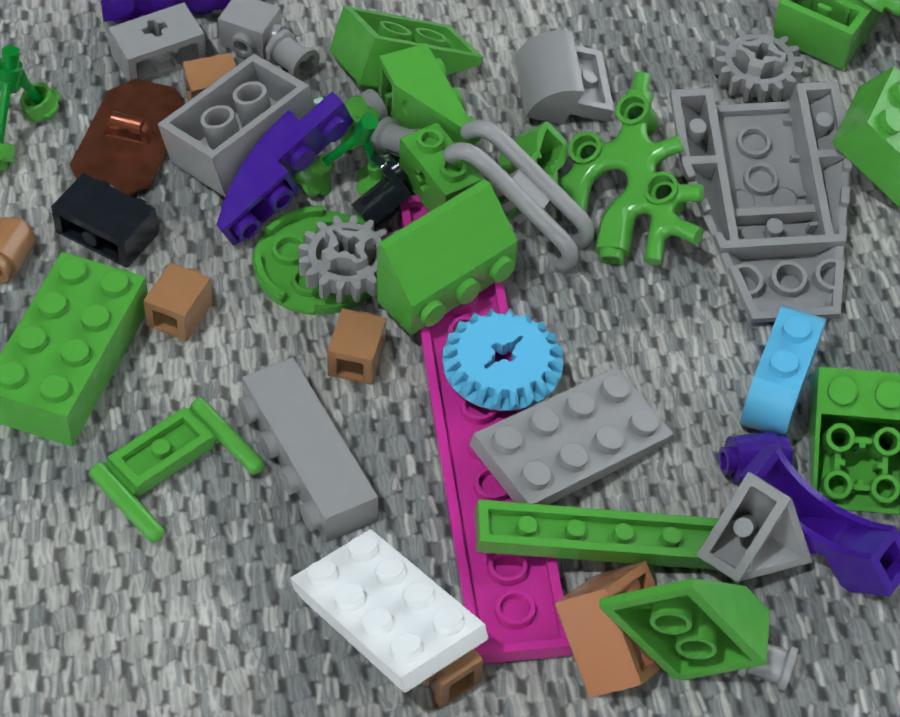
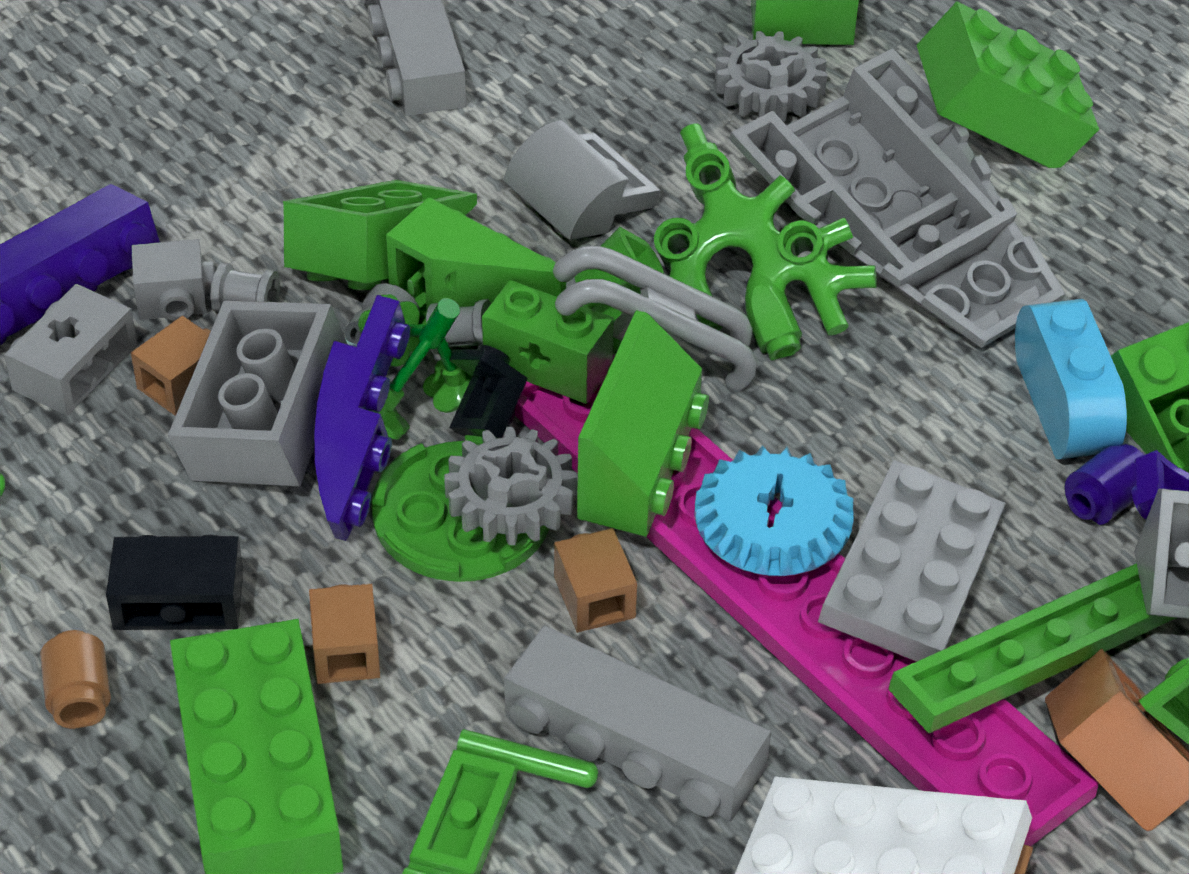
camera: 30 degrees left, 5 degrees down
(125, 136) = (118, 472): copper shield -> none

